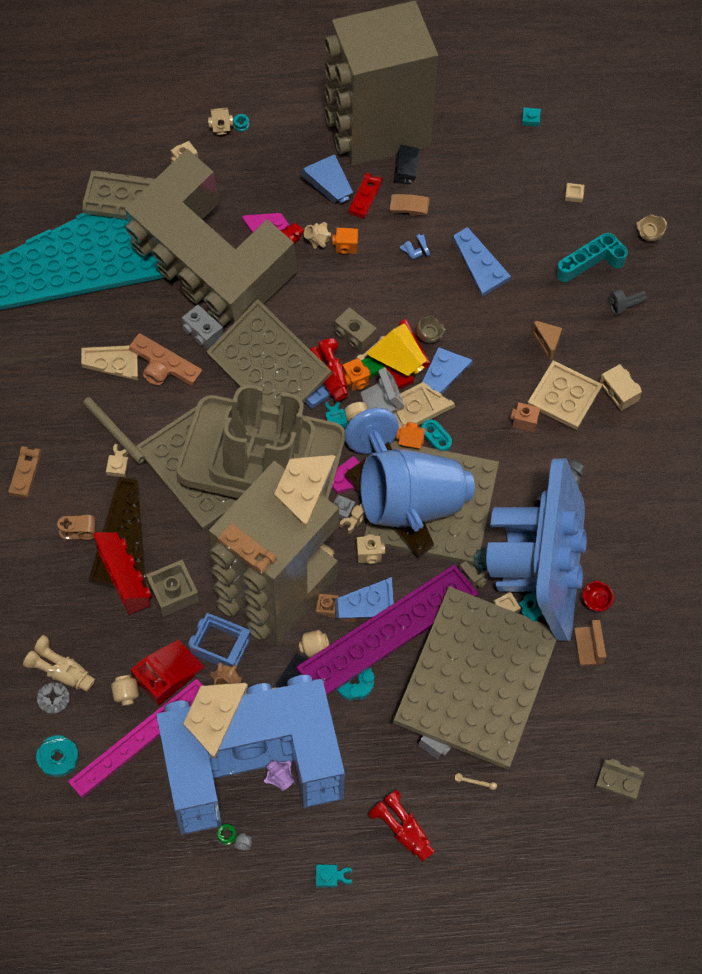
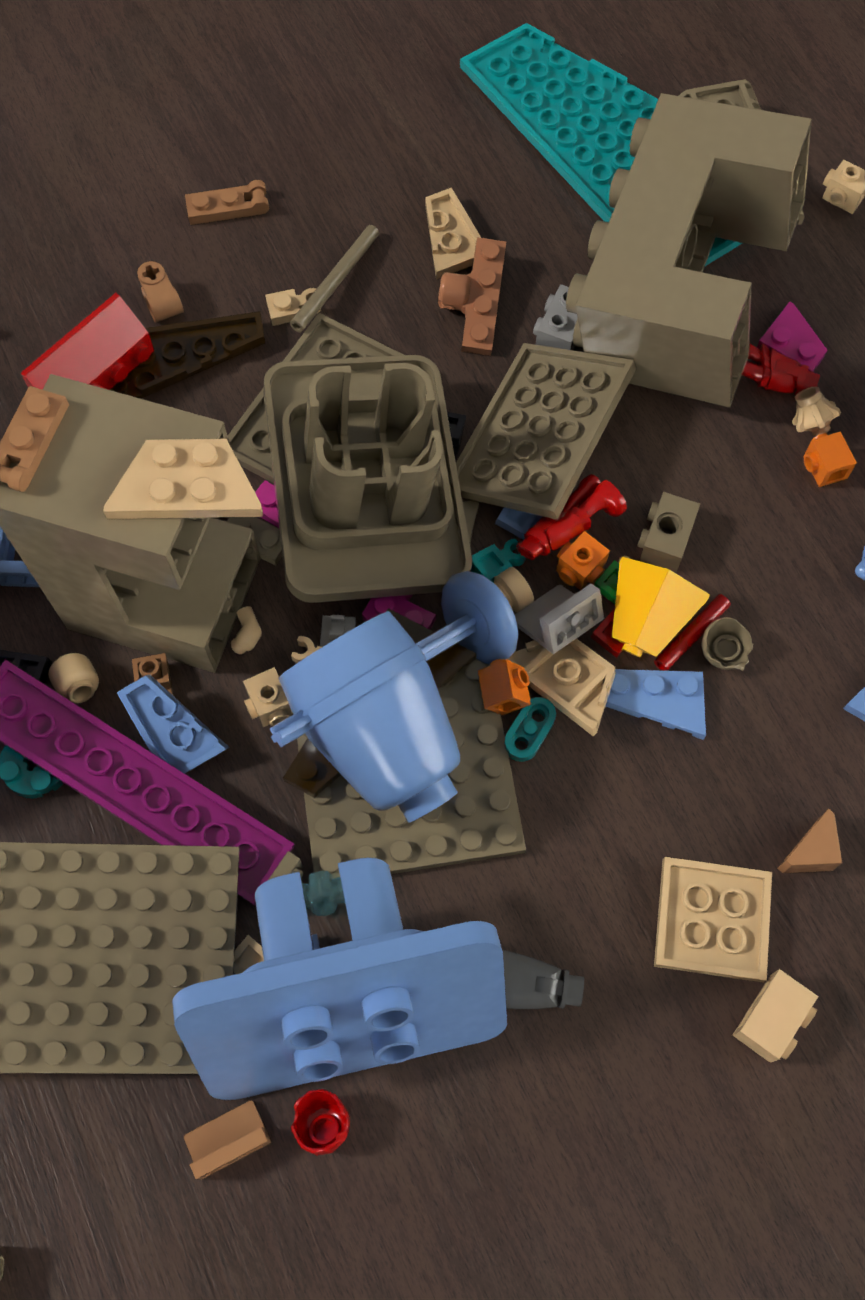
camera: 70 degrees right, 5 degrees up
(525, 417) = (633, 864): nougat brick -> none

